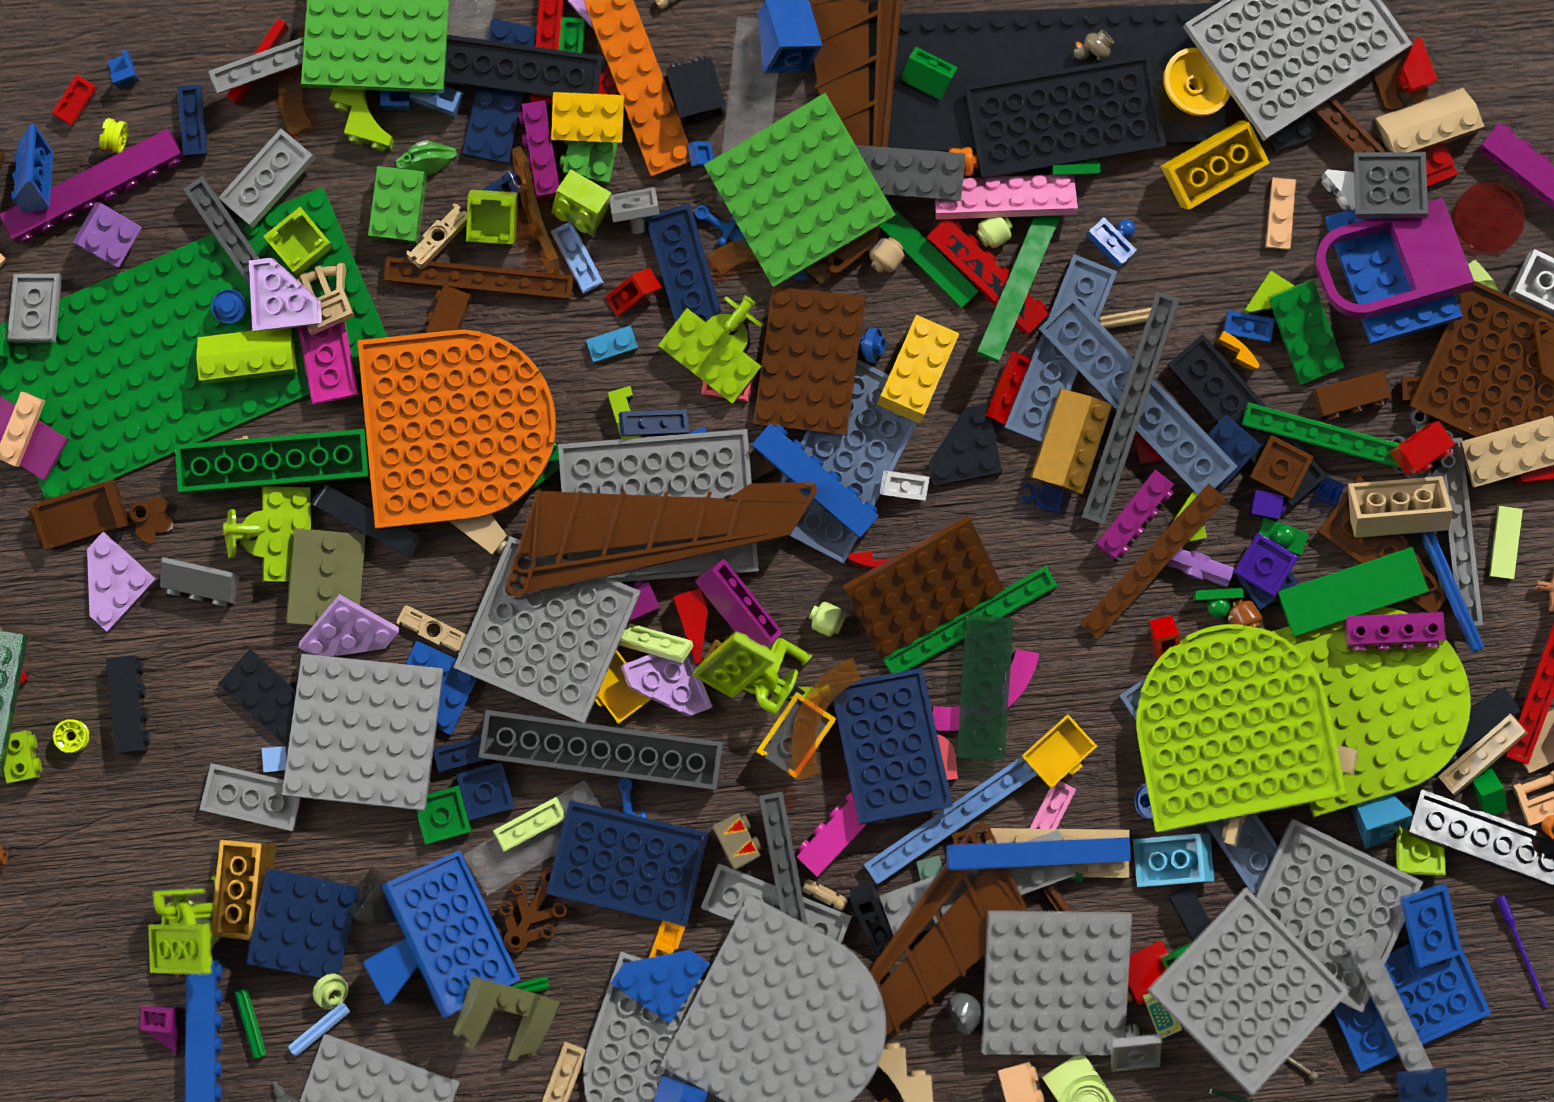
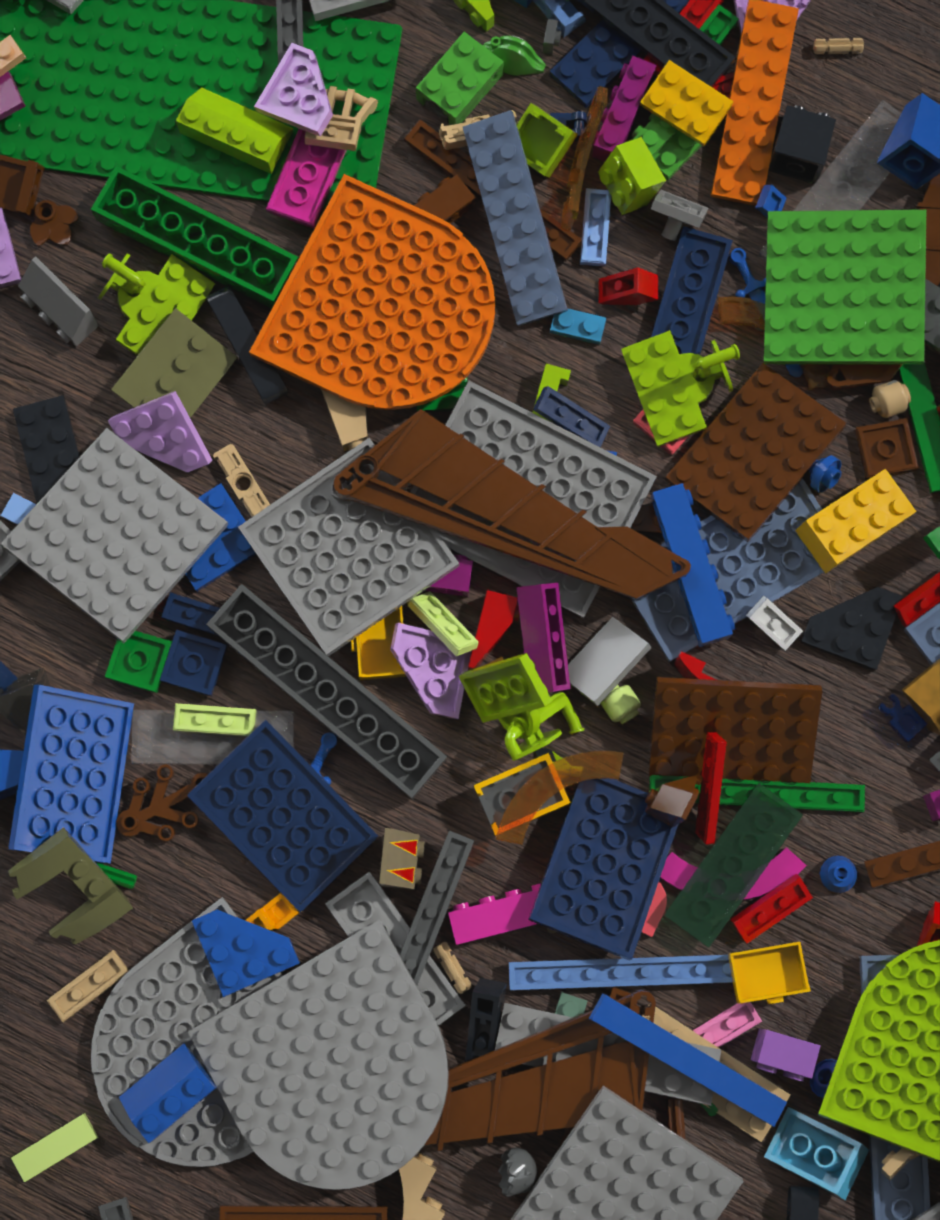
camera: 35 degrees right, 5 degrees down
(229, 306) = (247, 76): blue plate -> none
(298, 241) = (348, 55): lime container -> none
(447, 124) = (552, 37): none -> dark grey plate
(511, 292) = (515, 218): none -> sand blue plate
(795, 593) = (606, 660): none -> light grey tile
(907, 294) = (886, 447): none -> reddish brown tile
(911, 668) = (673, 800): none -> reddish brown slope
(933, 641) = (710, 787): none -> red tile
(1032, 702) = (771, 908): none -> red plate
(1060, 648) = (830, 874): none -> blue cone
(1106, 803) = (785, 1053): none -> medium lavender brick

